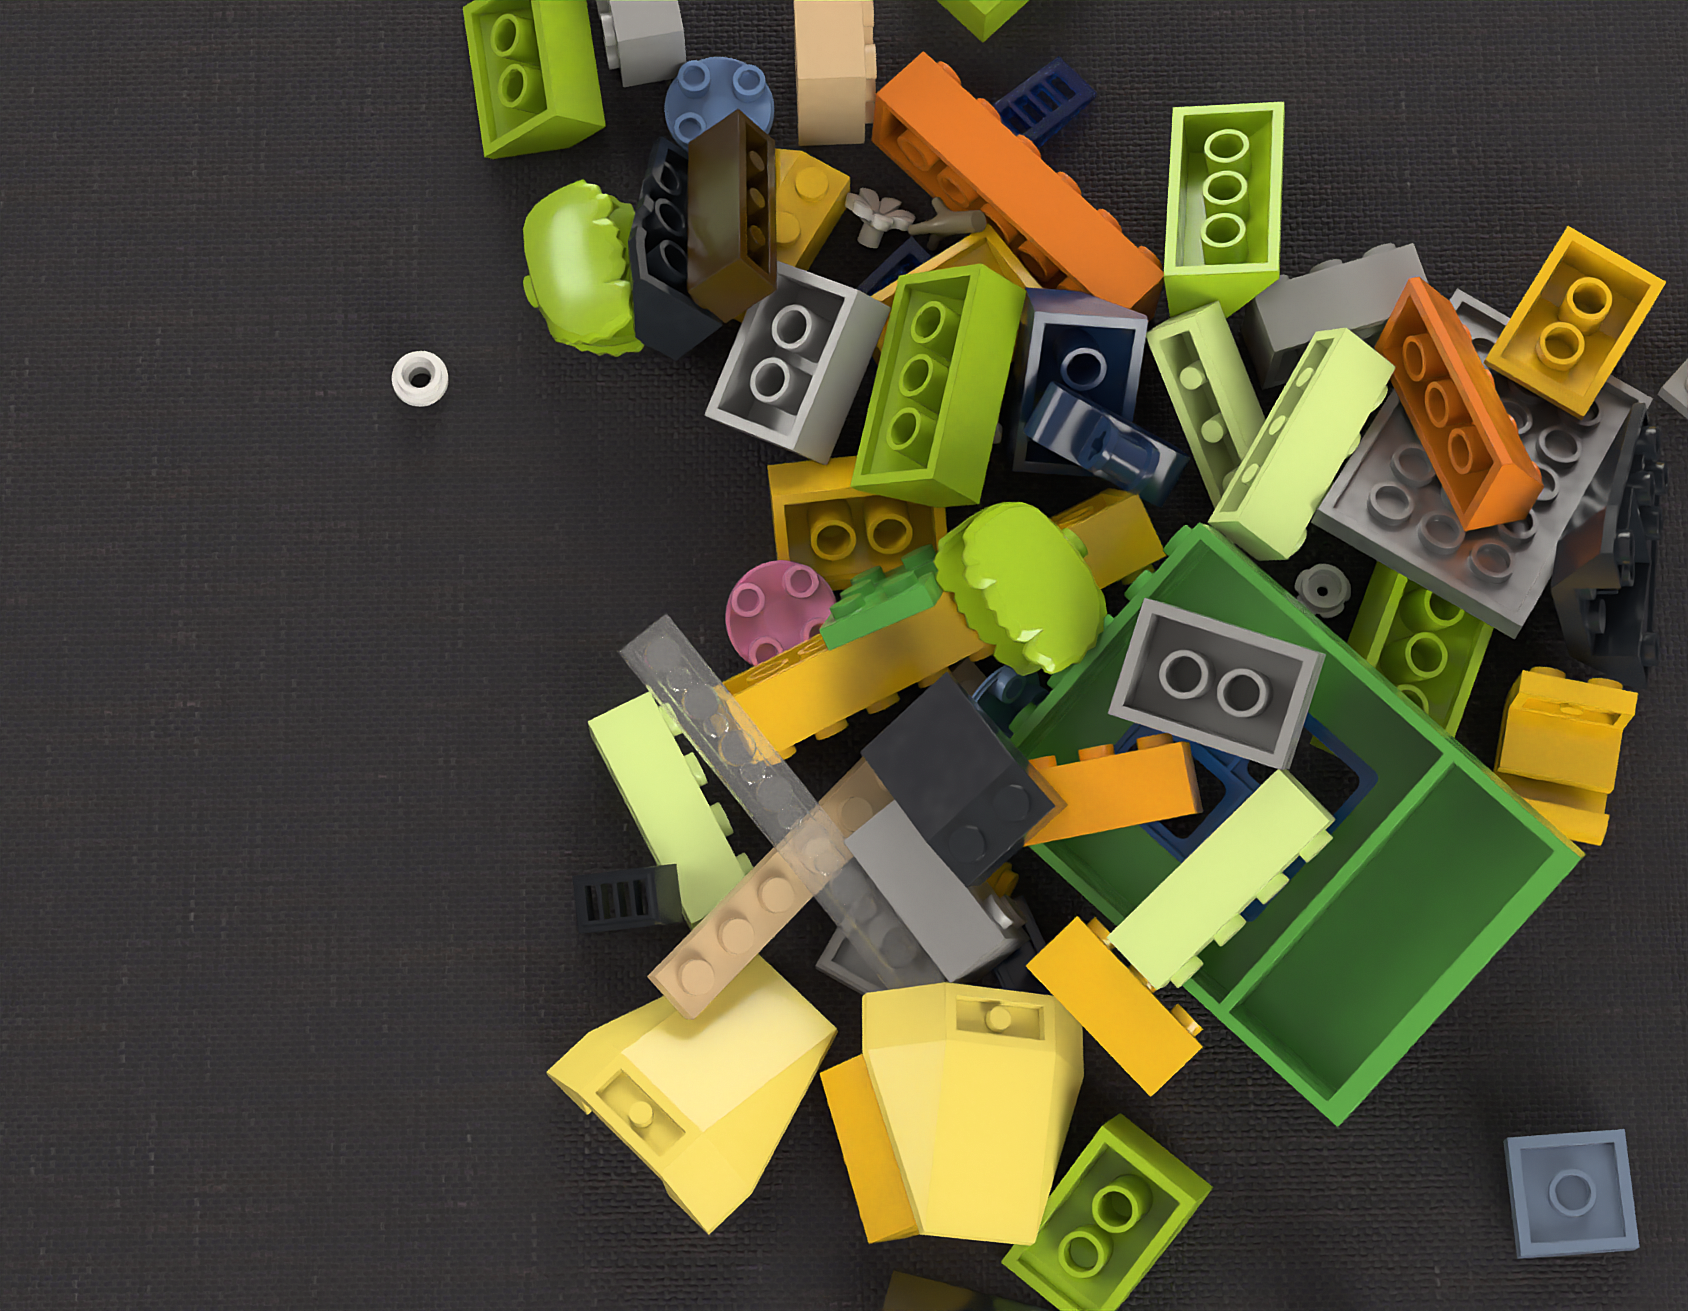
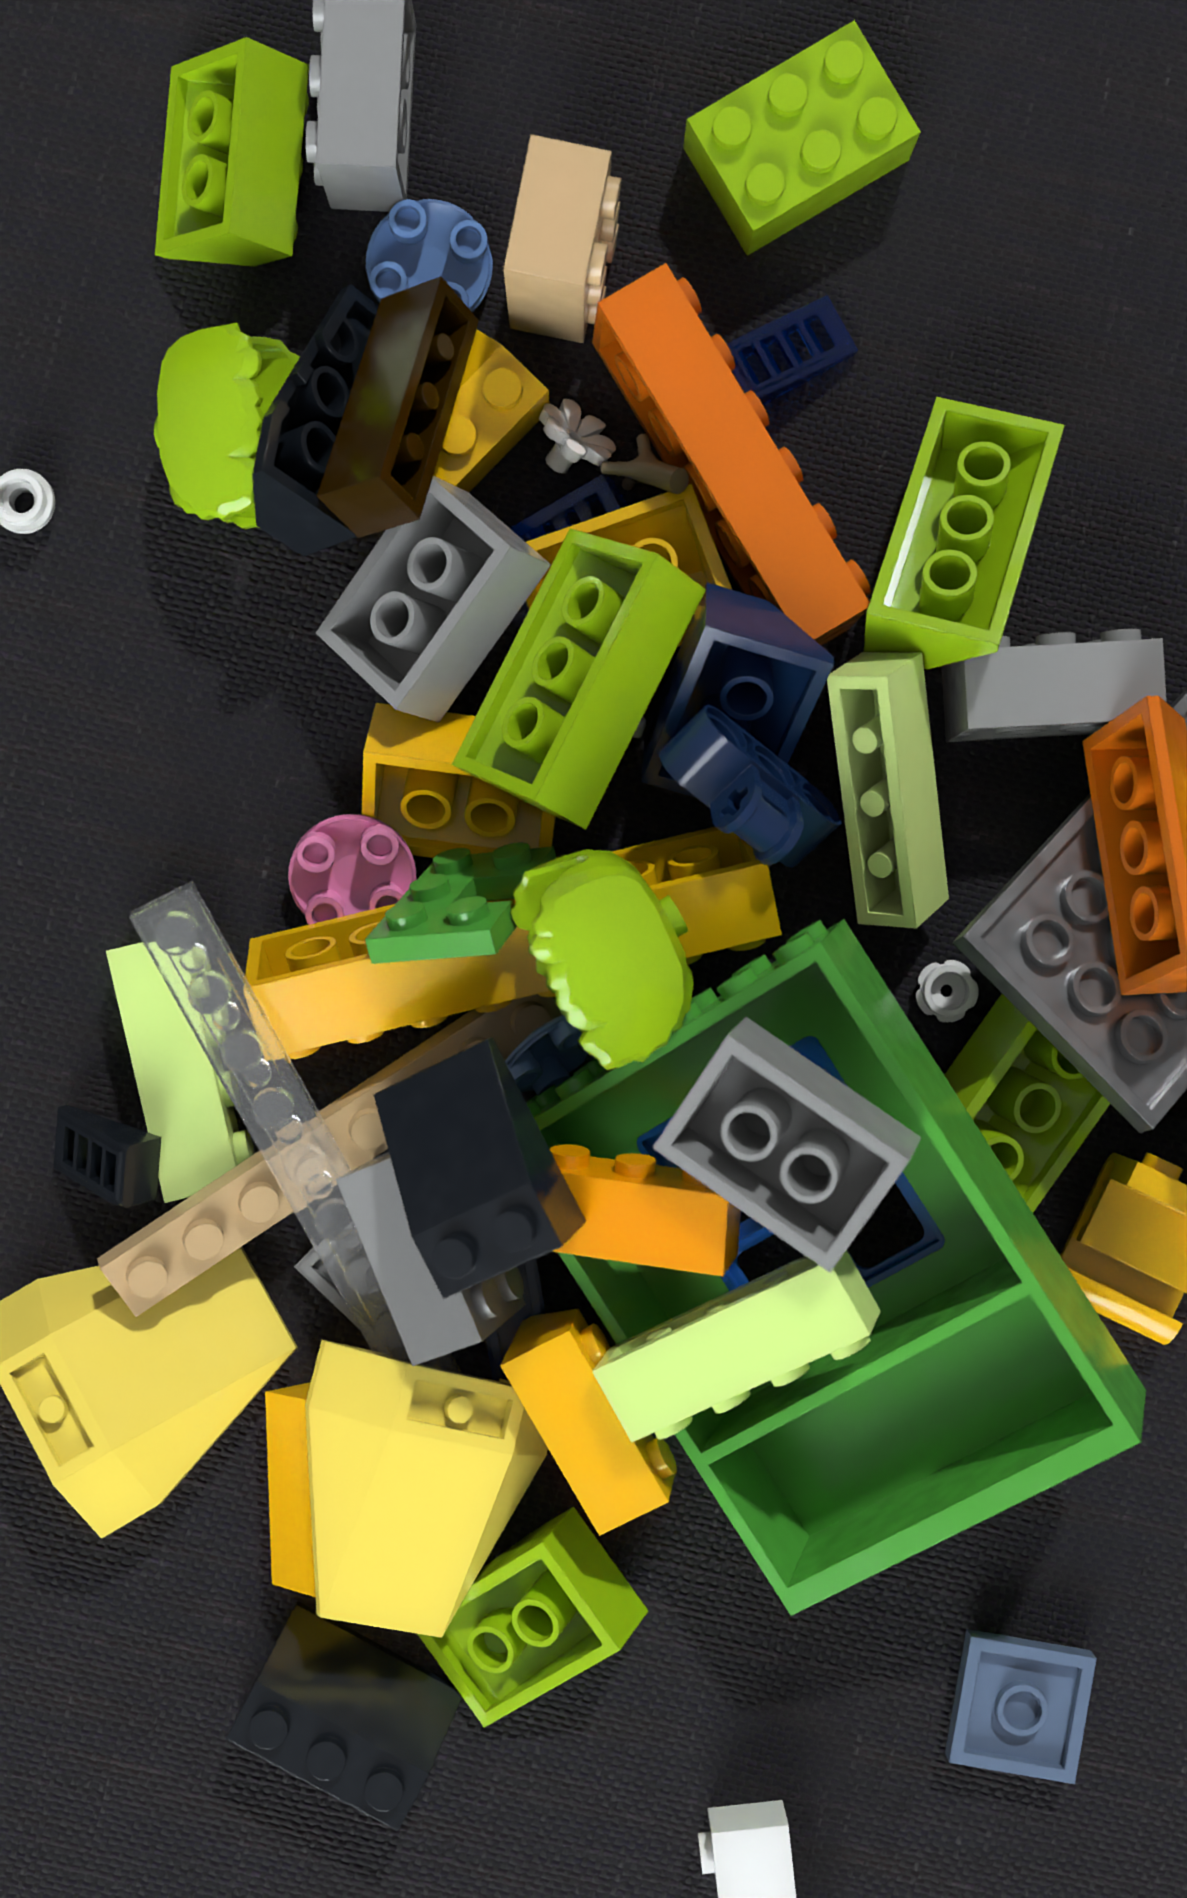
camera: 15 degrees right, 15 degrees up
(1302, 445) = (969, 848): yellowish green brick -> none

